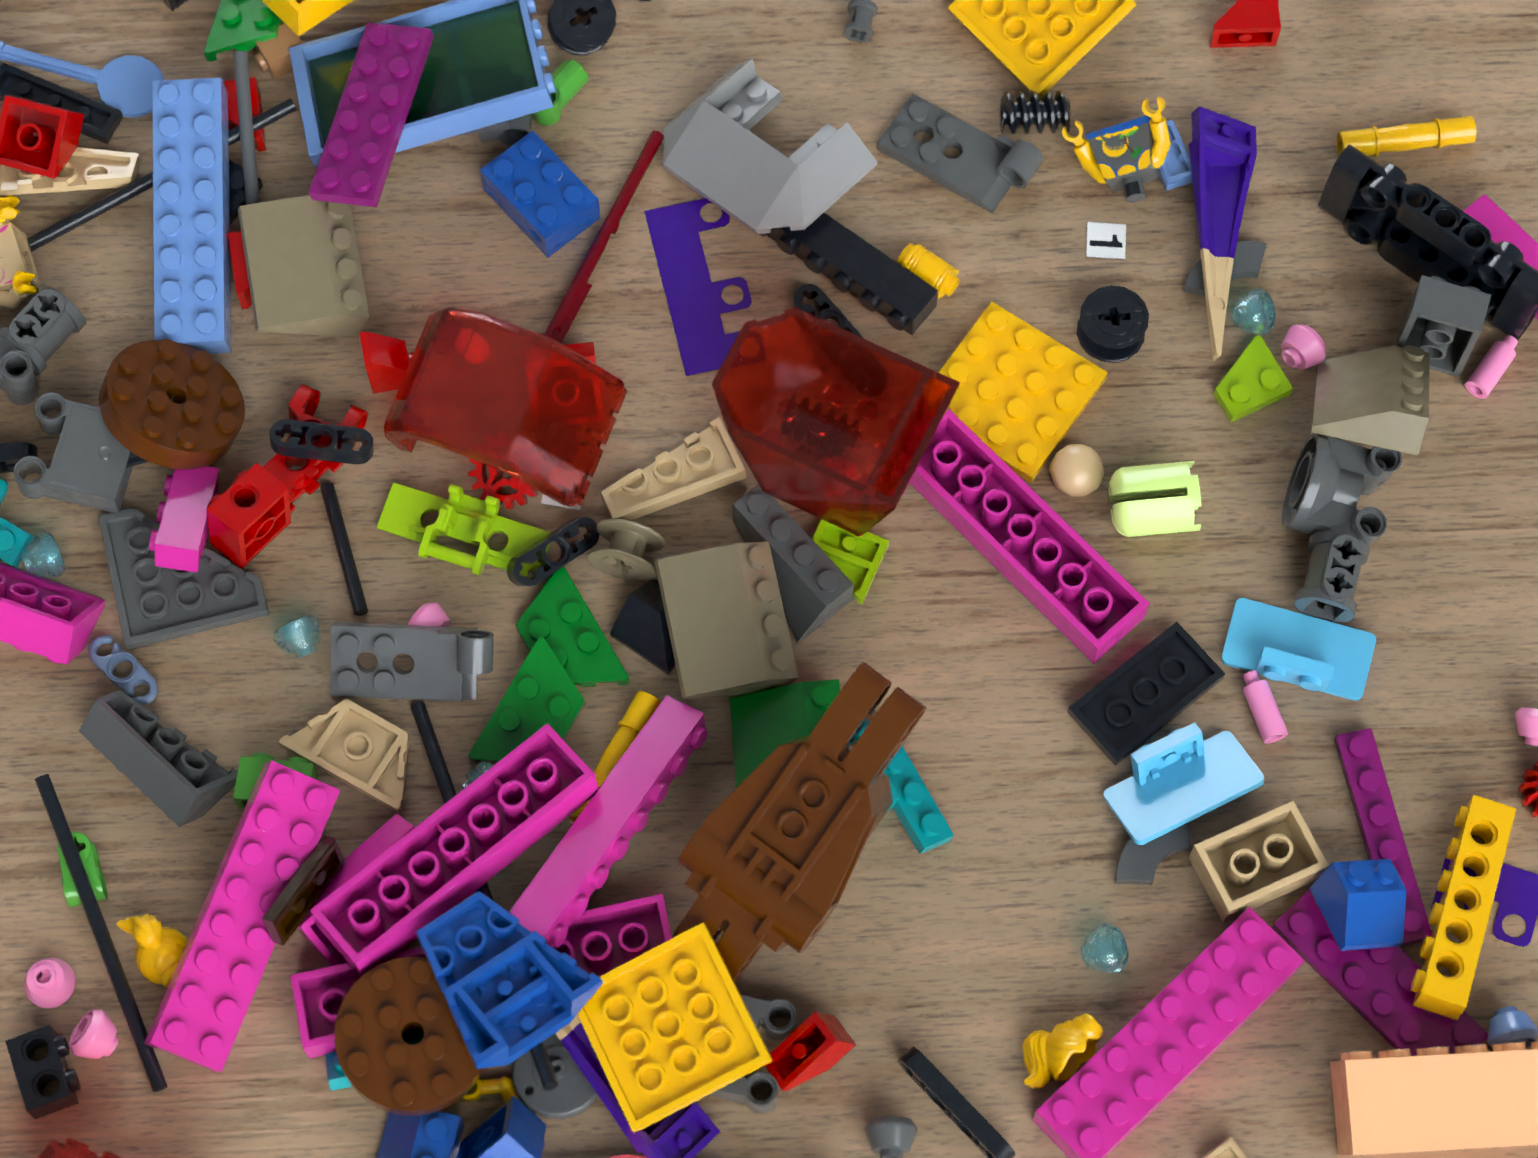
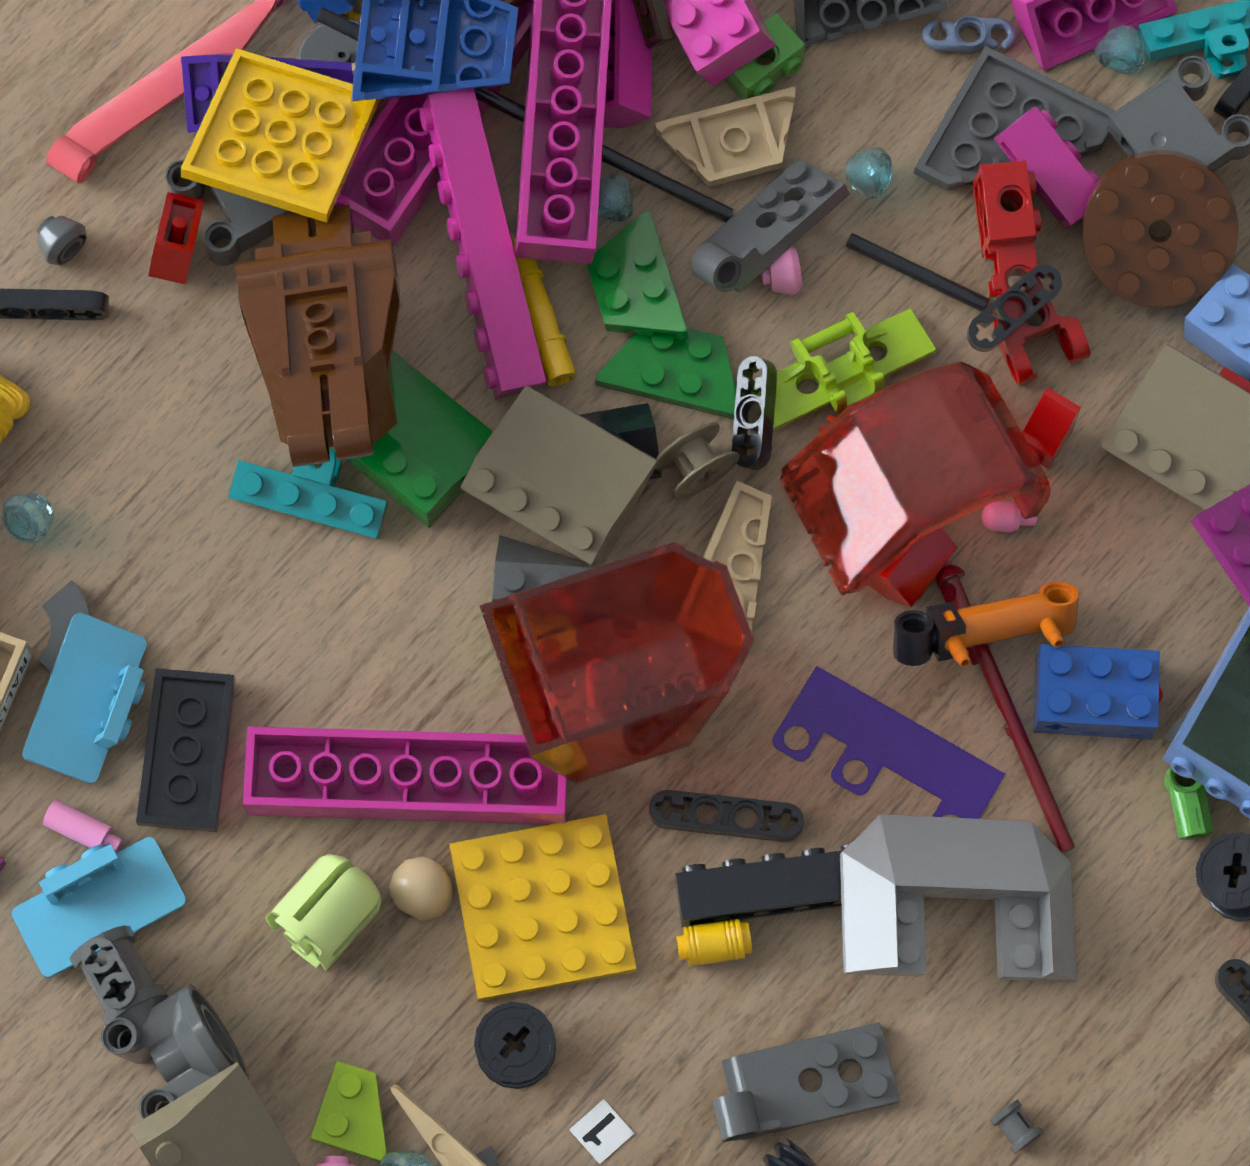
camera: 135 degrees right, 5 degrees up
(584, 296) = (952, 630): none -> orange piece

